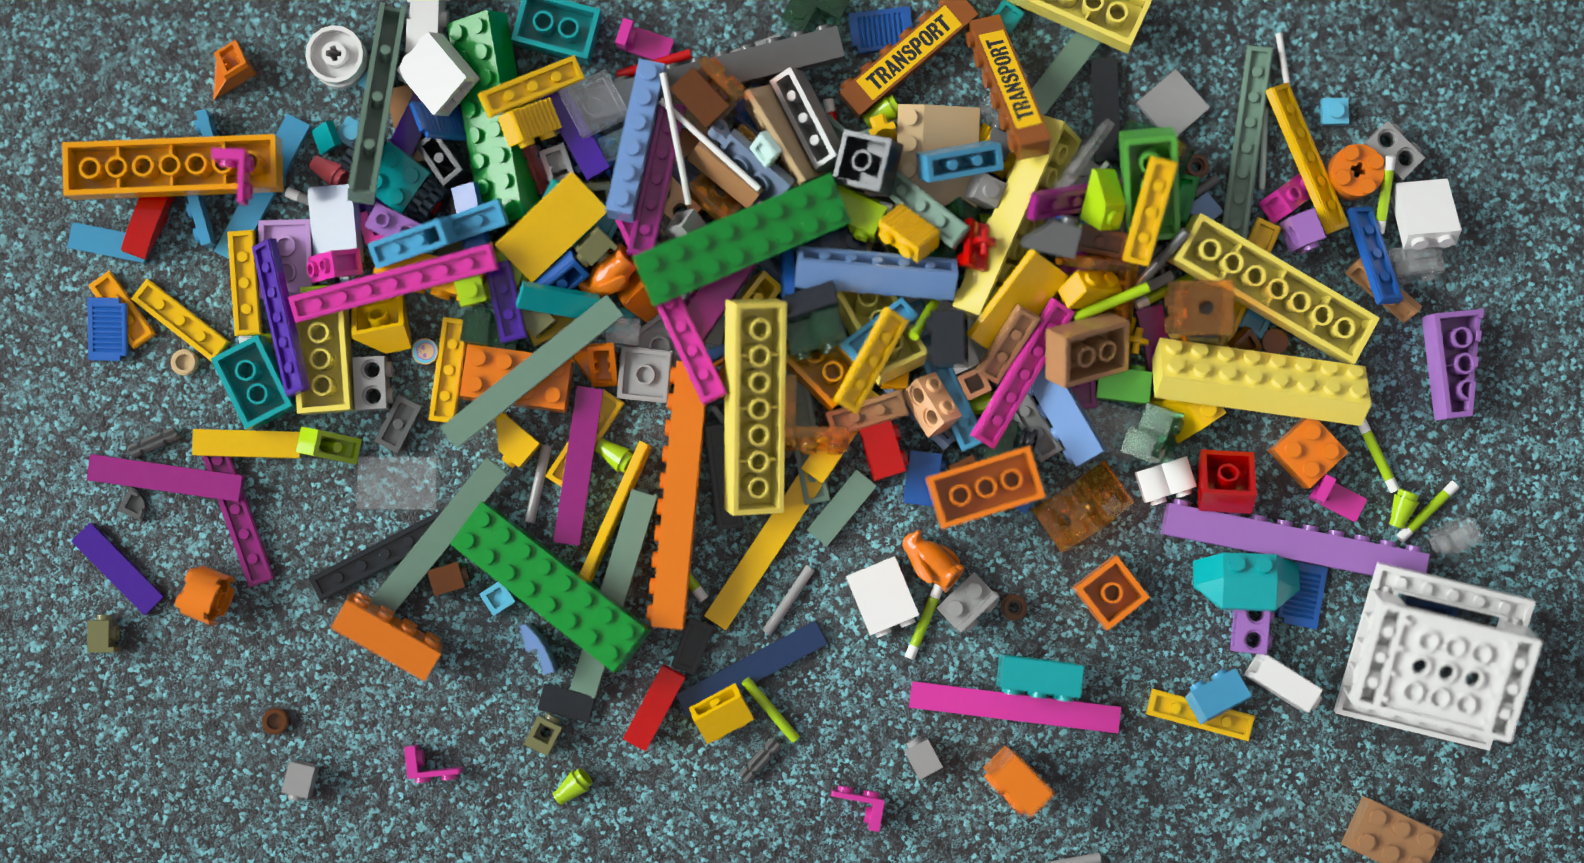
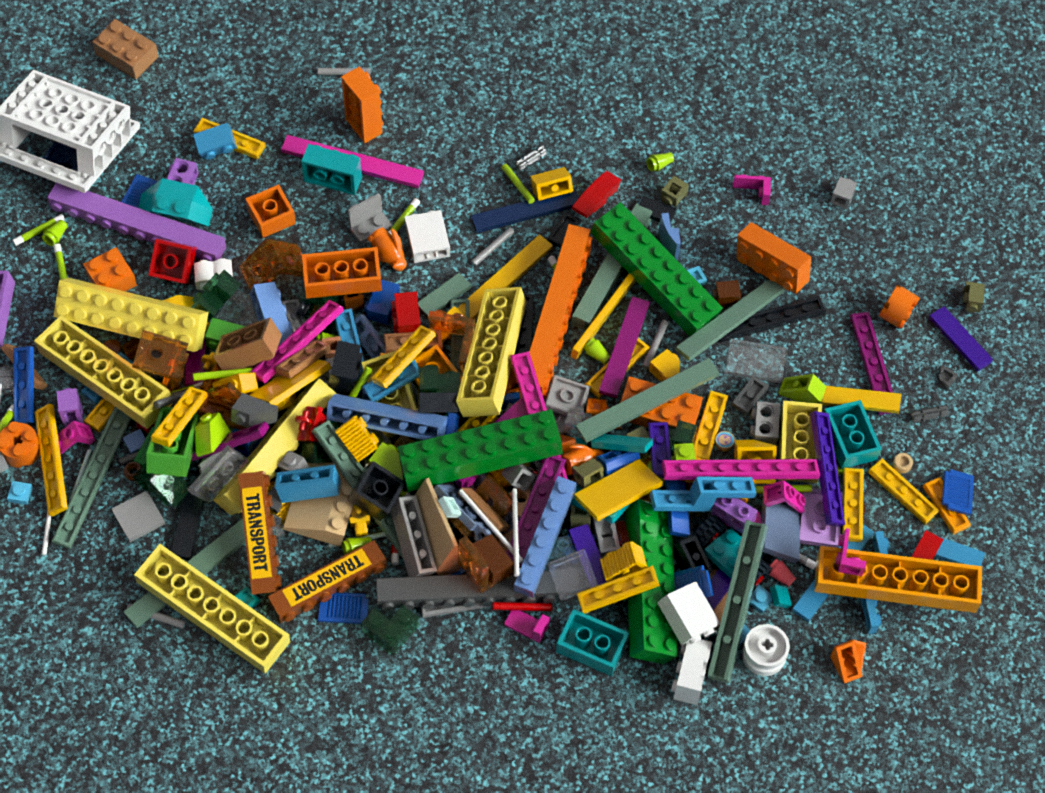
camera: 170 degrees left, 25 degrees down
(165, 477) = (922, 387): magenta tile -> none
(275, 720) = (857, 231): reddish brown tile -> none
(872, 814) = (462, 123): dark pink bracket -> none
(922, 757) = (421, 140): light grey brick -> none
(931, 404) = (365, 333): light nougat brick -> none
(1022, 607) = (338, 213): reddish brown plate -> none
(1284, 683) = (169, 139): white brick -> none
(1337, 498) = (96, 244): dark pink bracket -> none
(1455, 536) = (26, 204): clear brick -> none

